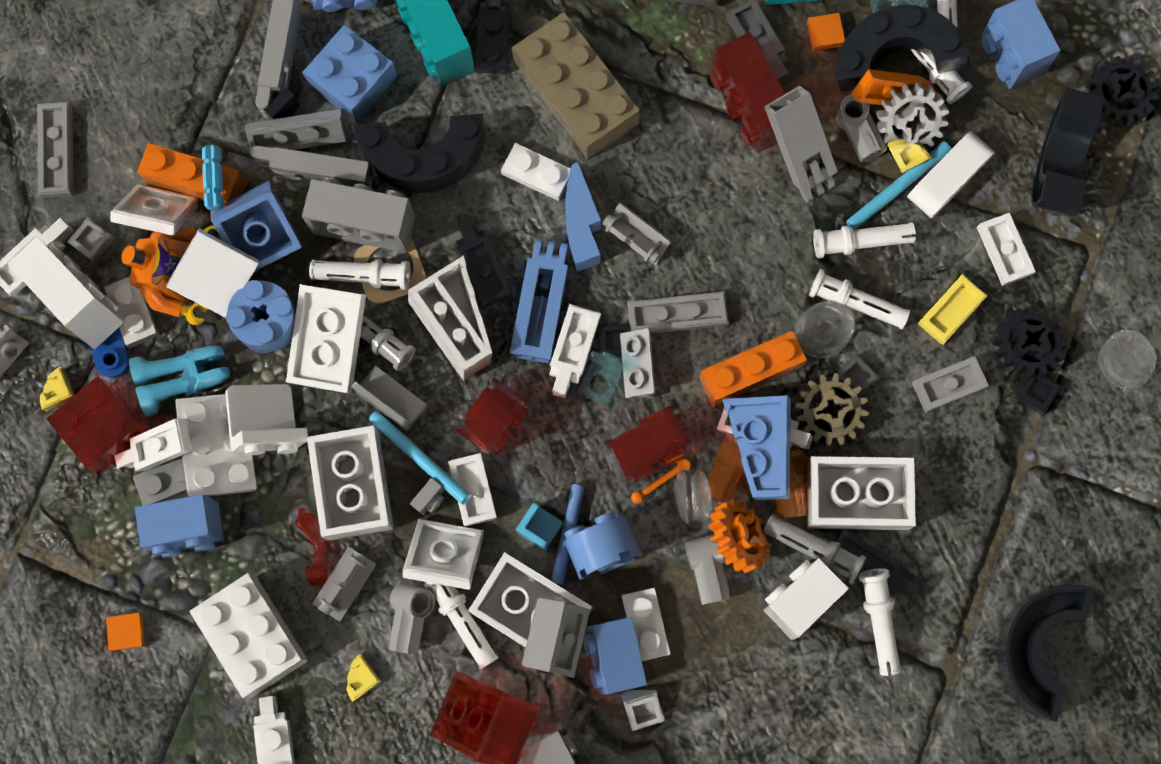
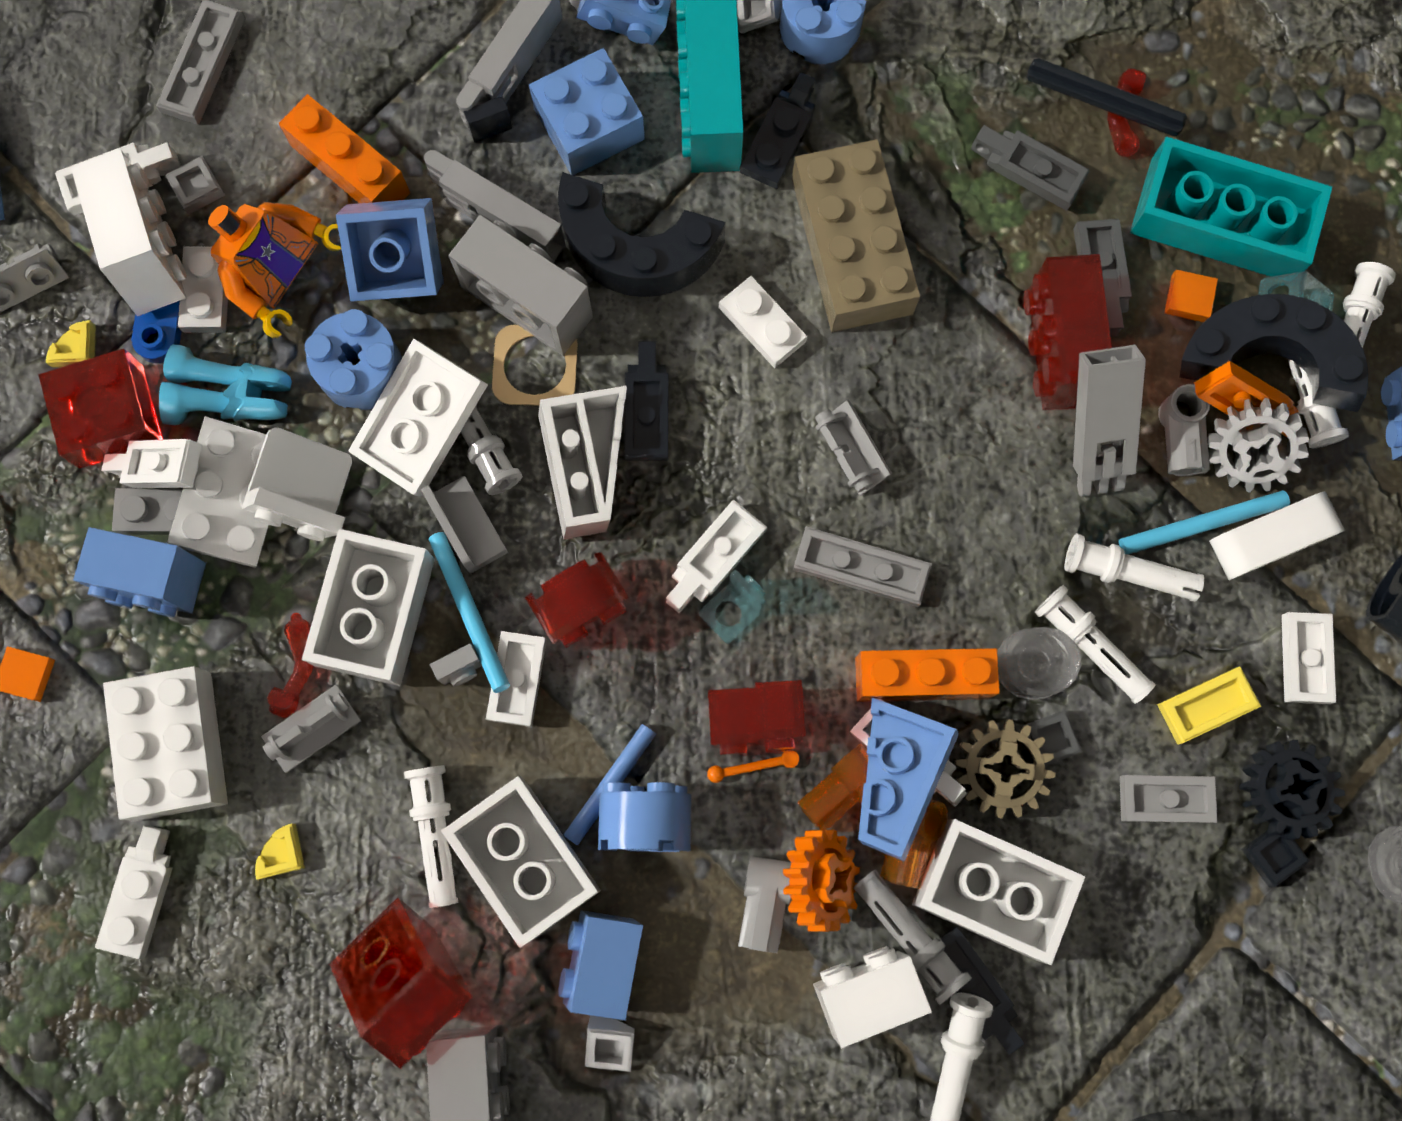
camera: 15 degrees right, 0 degrees up
(154, 209) = (281, 178): white tile -> none
(212, 177) = (363, 165): medium azure axle -> none
(212, 272) = (312, 279): white tile -> none
(298, 131) = (496, 155): light grey tile -> none
(375, 273) = (513, 363): white pin -> none
(410, 607) = (378, 793): light grey piece -> none
(443, 554) = (444, 744): white tile -> none
(539, 316) = (690, 498): medium blue hinge -> none
(539, 527) = (577, 760): medium azure panel -> none
(555, 637) = (534, 913): light grey panel -> none
(581, 221) = (791, 403): medium blue slope -> none
(610, 338) = (771, 567): black tile -> none
(638, 364) = (786, 609): light grey hinge -> none
(647, 622) = (660, 939): white plate -> none
(692, 496) = (784, 803): clear piece -> none
(908, 154) = (1233, 488): light yellow tile -> none

